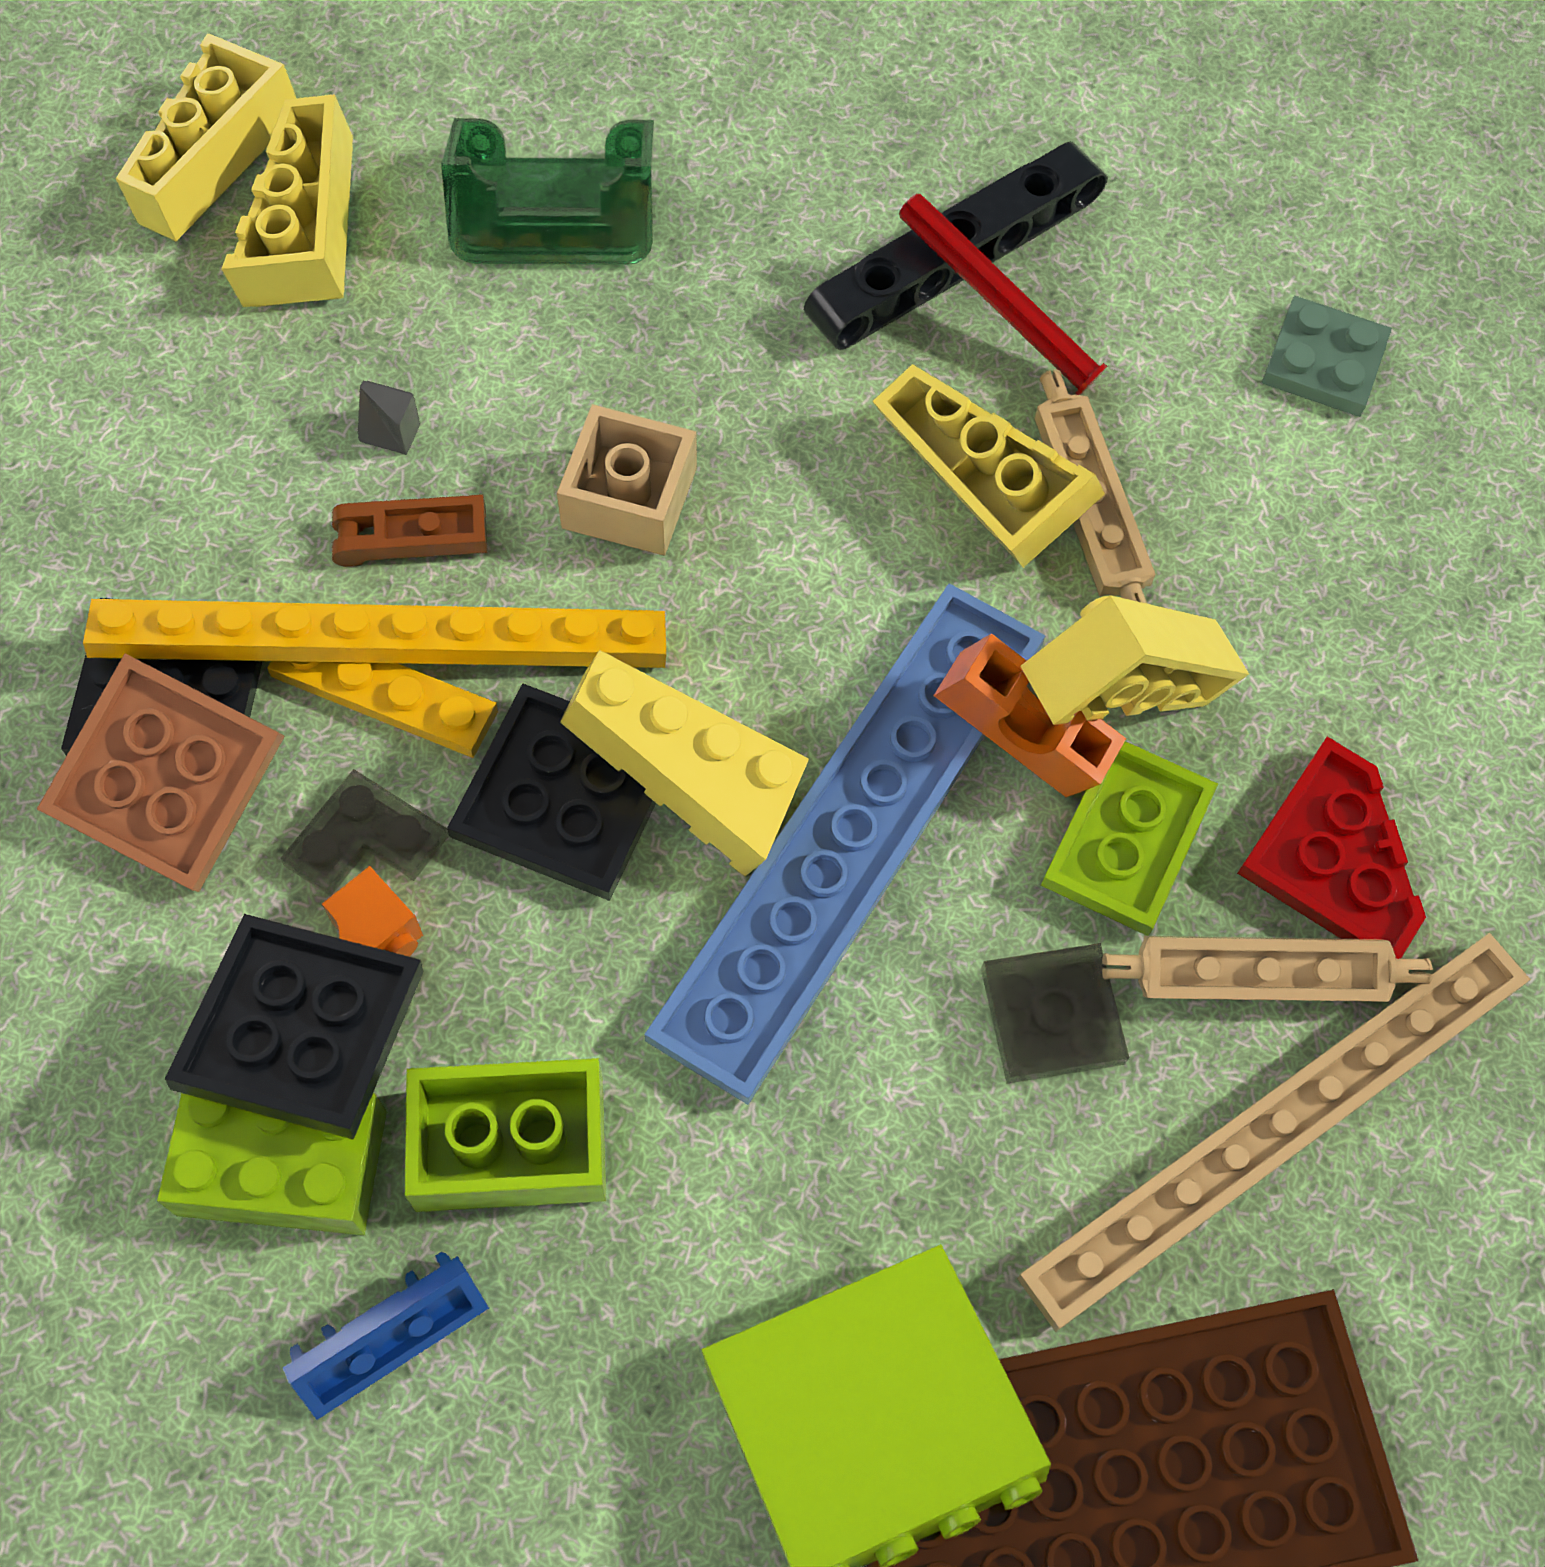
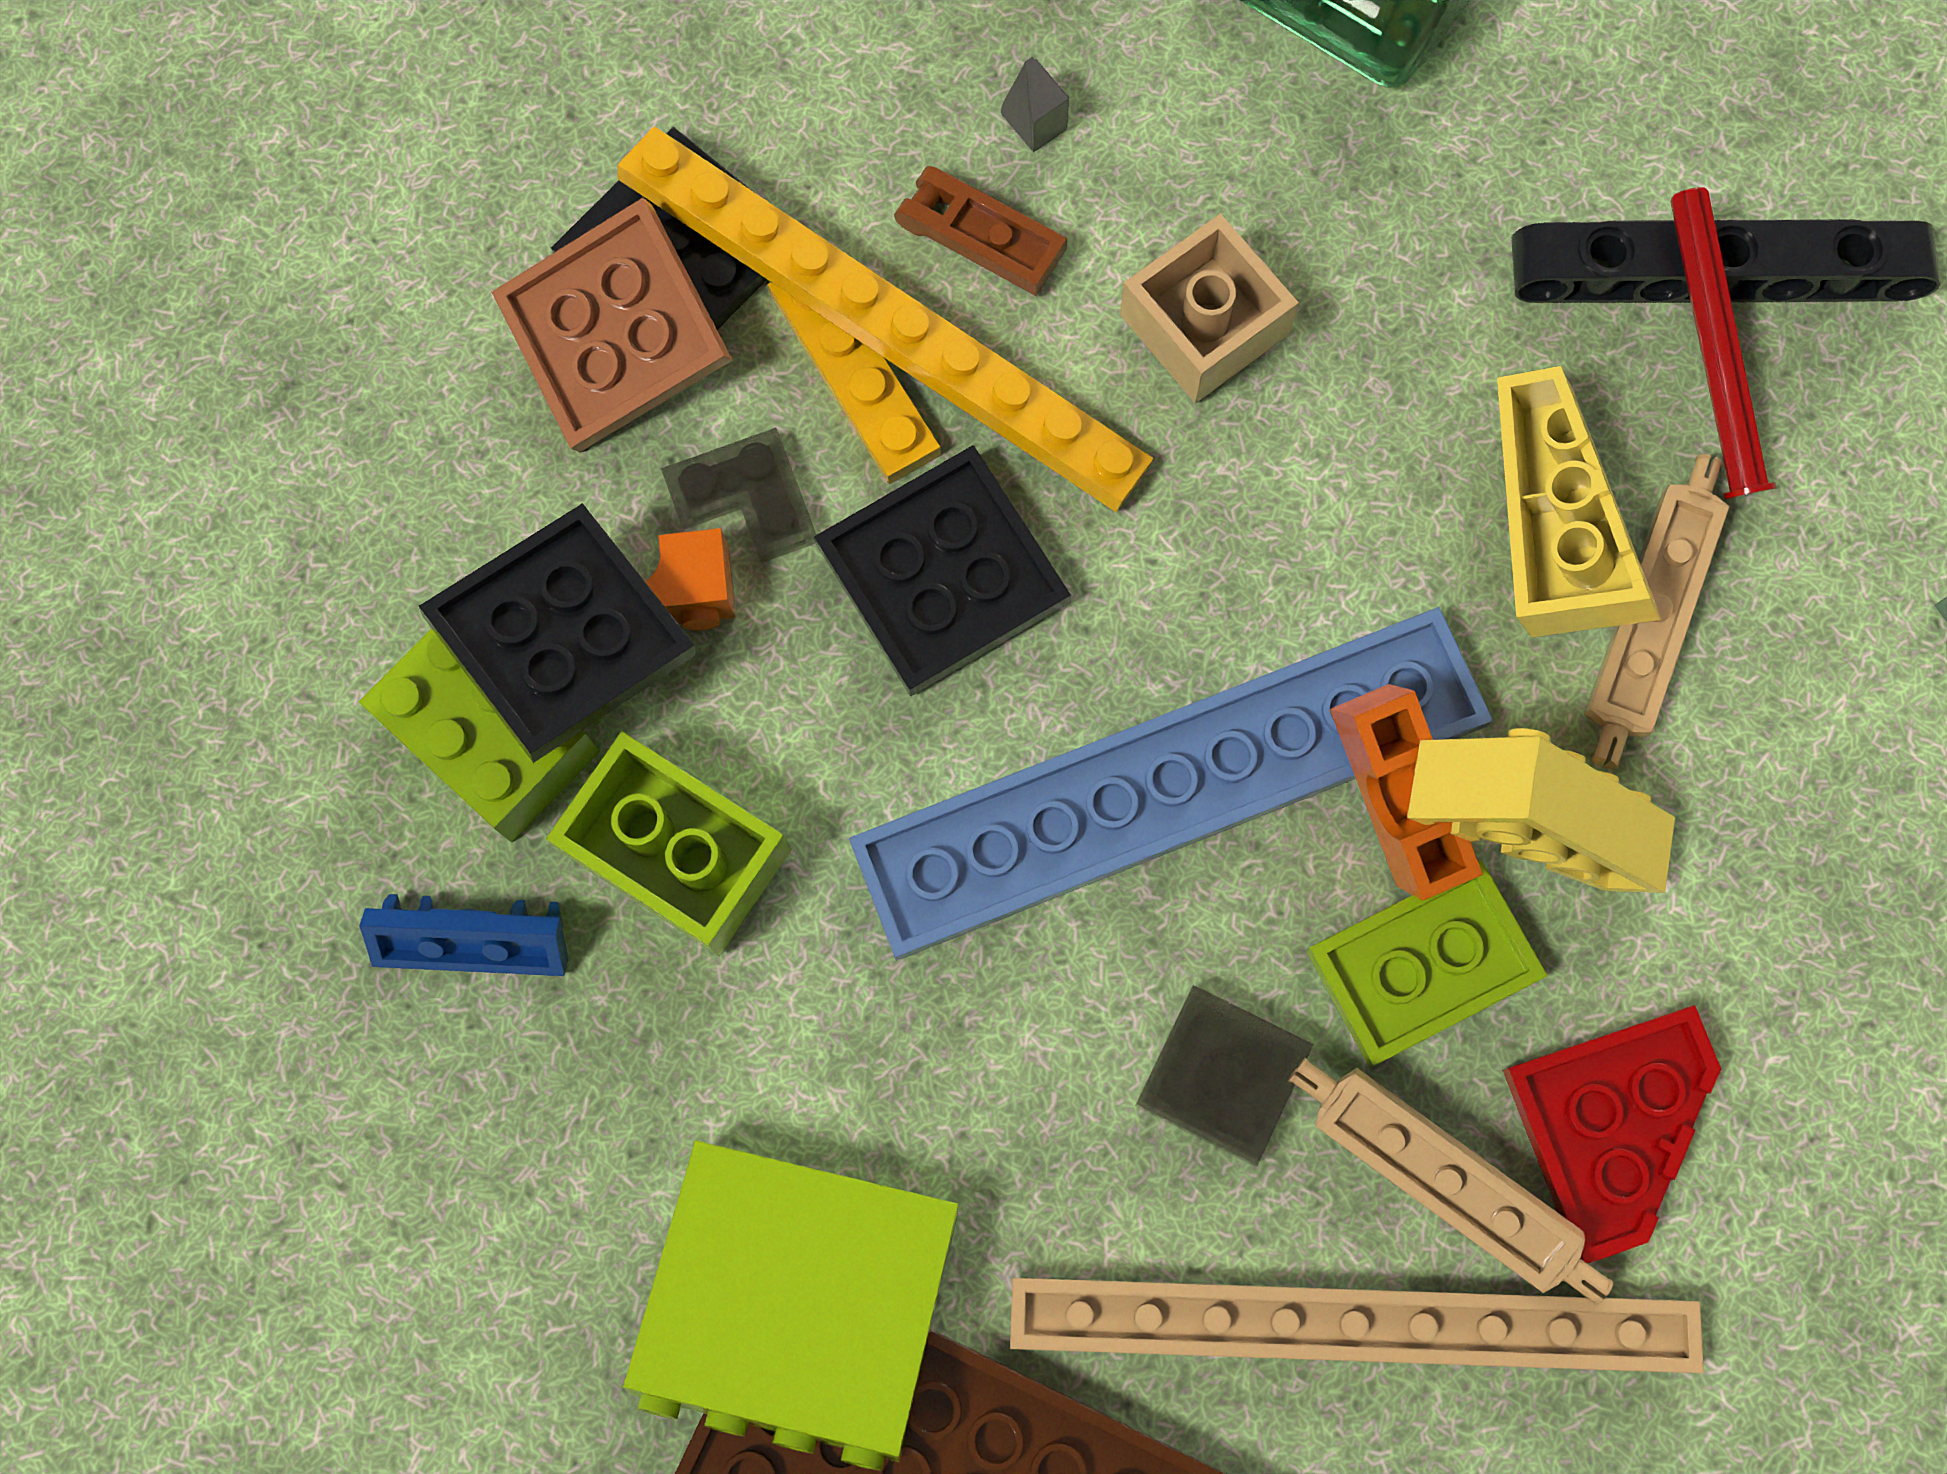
camera: 45 degrees right, 10 degrees up
(689, 757) = (1067, 627): light yellow wedge -> none

